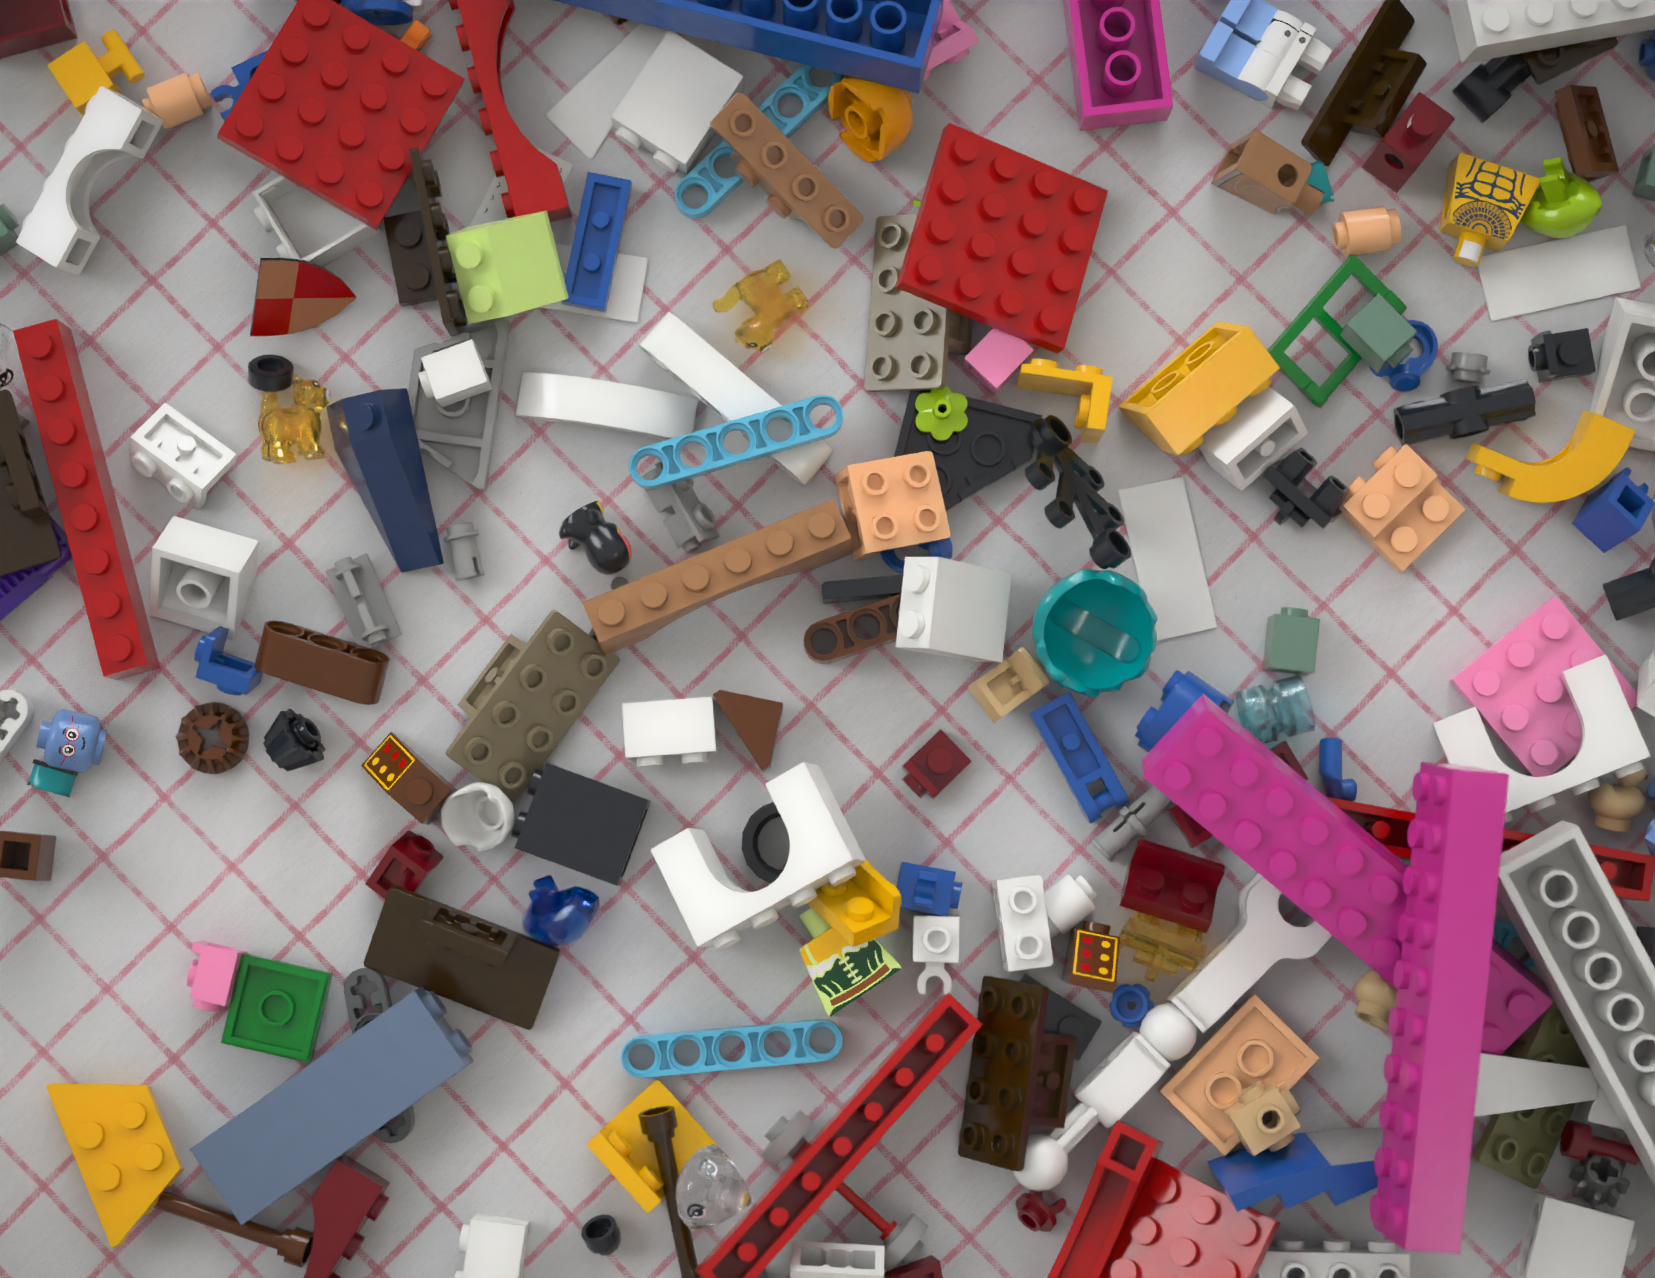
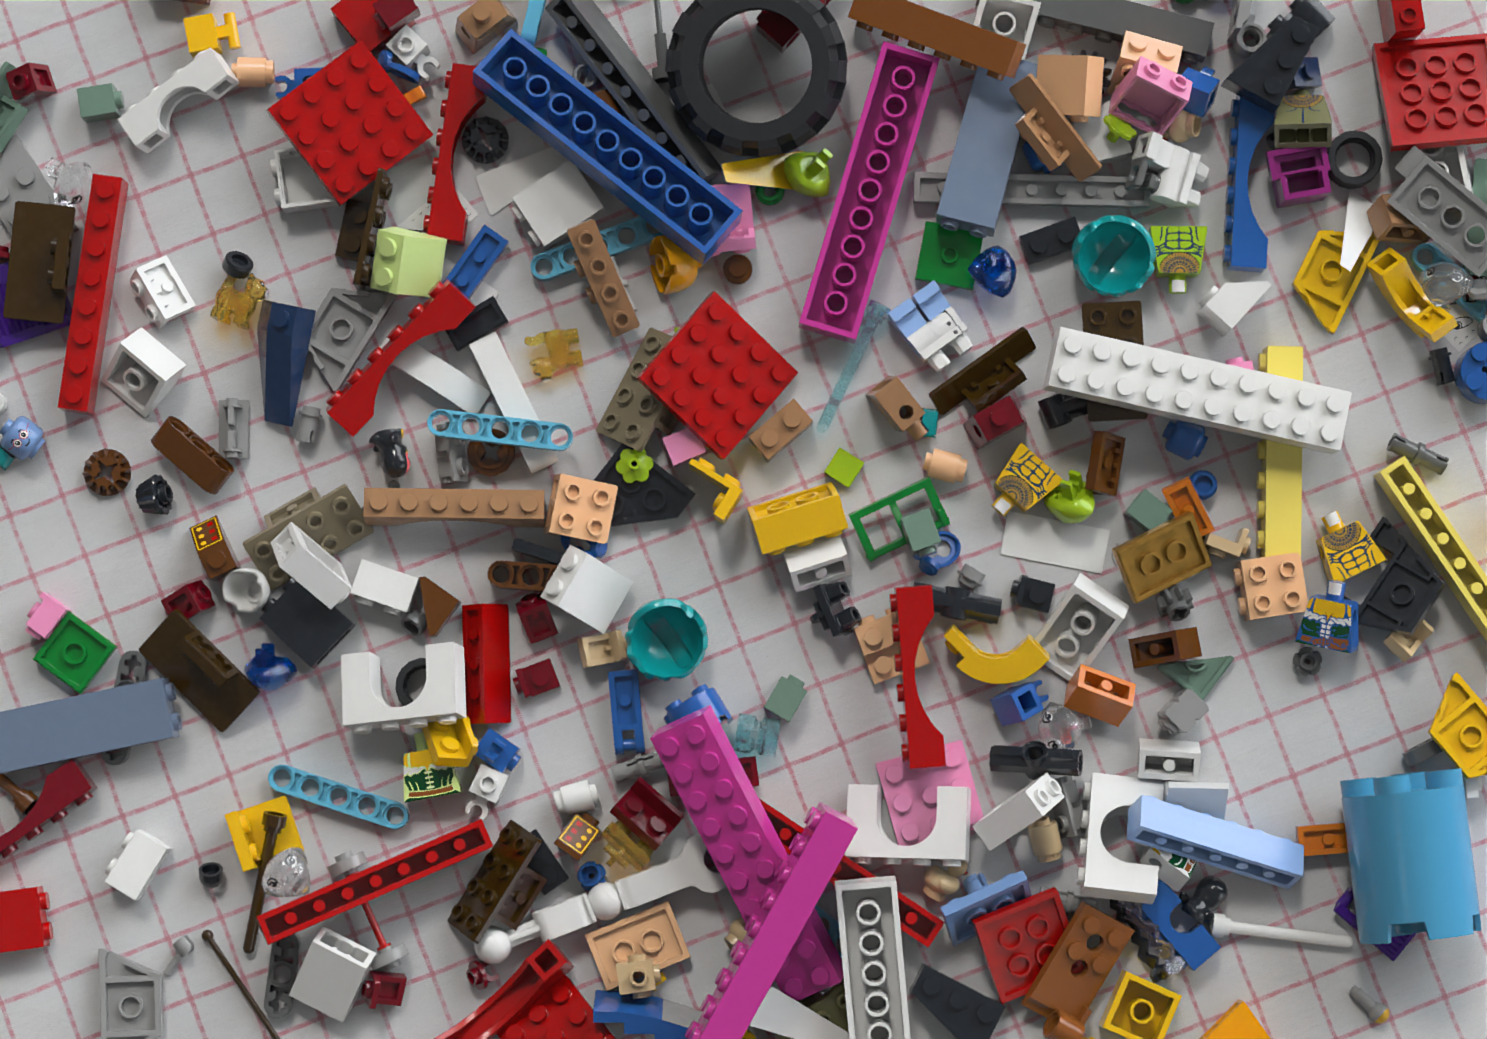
camera: 20 degrees right, 0 degrees up
(227, 671) = (133, 436): blue bracket -> none
(295, 296) = (273, 225): shield -> none
(454, 374) = (348, 314): white brick -> none
(538, 78) = (480, 152): none -> black gear
(556, 743) = (311, 565): none -> white window
(584, 311) = (441, 312): none -> red arch
(635, 314) = (480, 322): none -> black tile
(733, 761) = (414, 623): none -> dark grey hinge
(741, 501) = (490, 466): none -> reddish brown gear
(856, 771) = (487, 662): none -> red panel
(897, 681) = (536, 617): none -> dark red bracket
(962, 86) = (737, 269): none -> reddish brown plate
(1022, 923) = (546, 796): white bracket -> none
(1052, 441) = (692, 514): black plant -> none
(1120, 279) = (780, 430): none -> medium nougat brick
(1168, 557) = (735, 614): white sticker -> none
(1180, 65) = (875, 315): none -> clear light blue piece
(1227, 294) = (844, 467): none -> lime tile
(1331, 771) = (776, 786): blue arm -> none
(1423, 450) = (913, 614): none -> red arch

